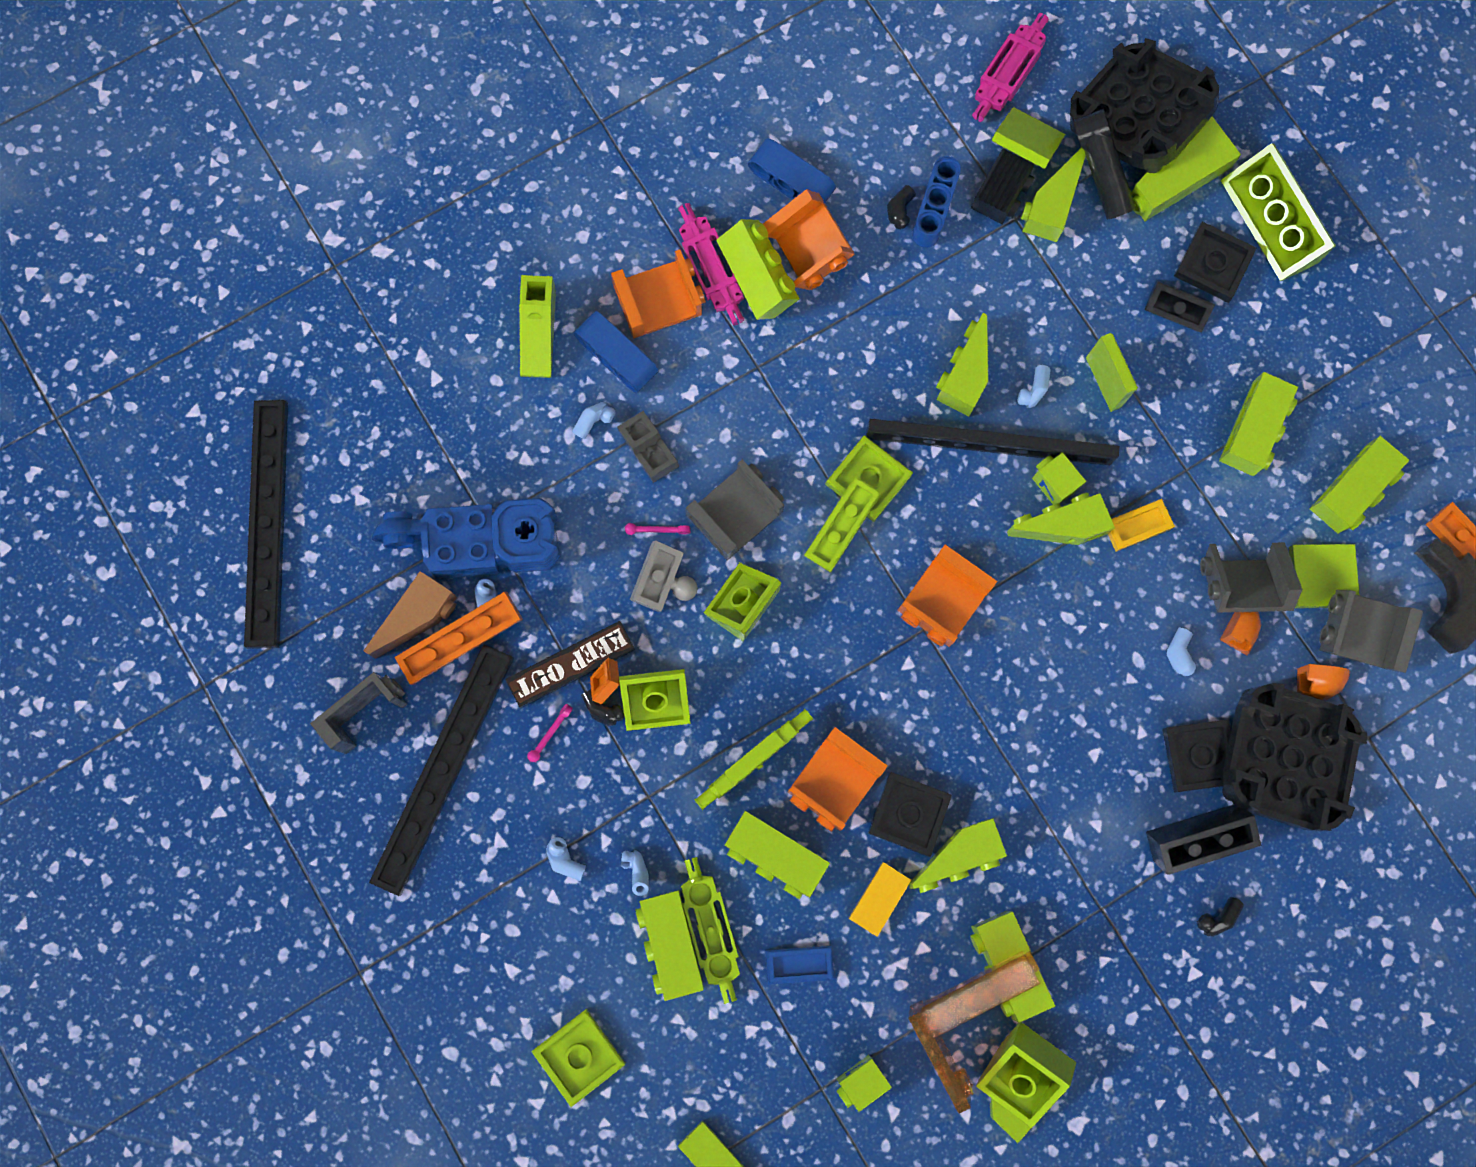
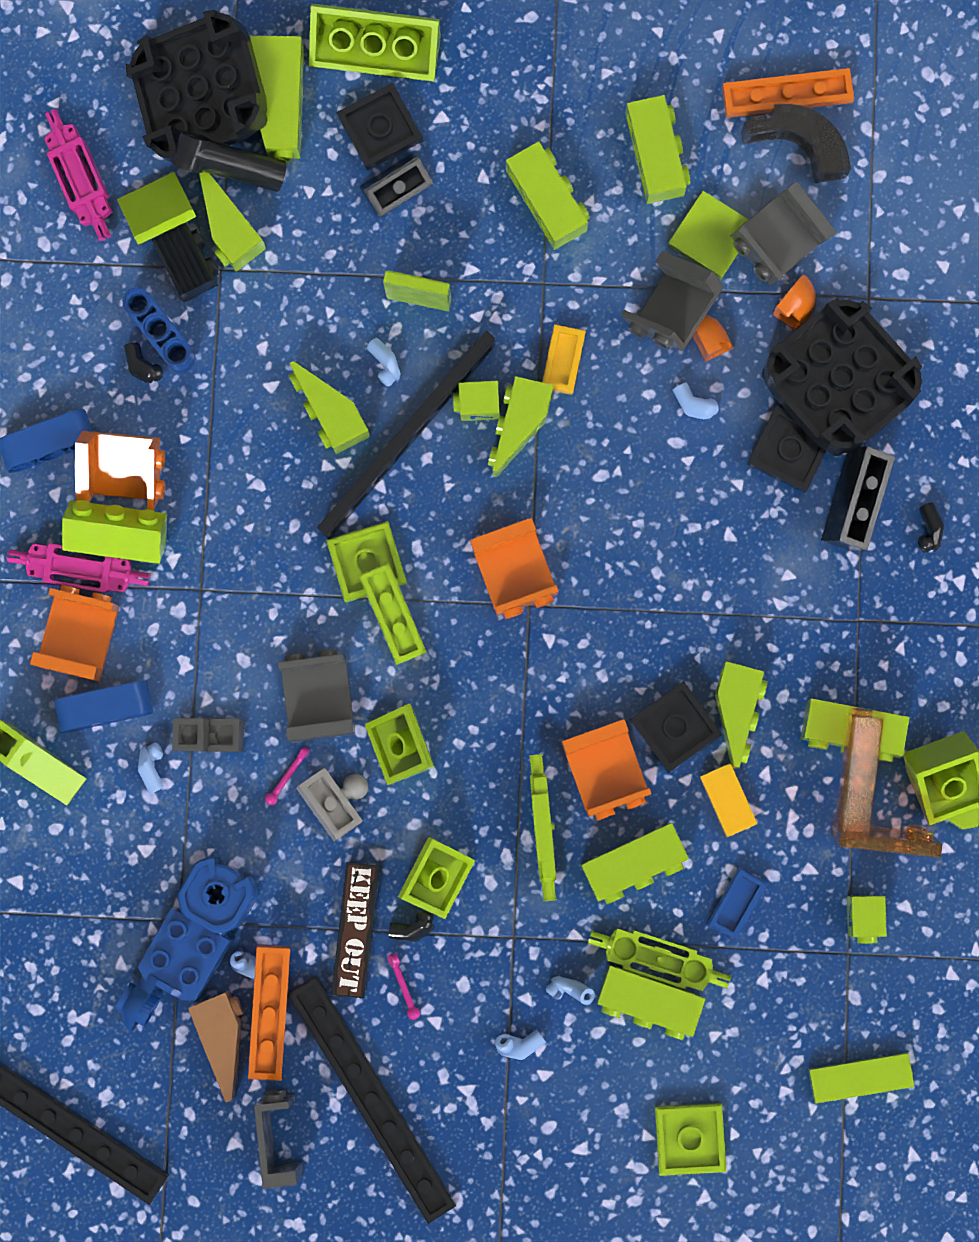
camera: 45 degrees left, 5 degrees up
(604, 680) = (391, 910): orange tile -> none

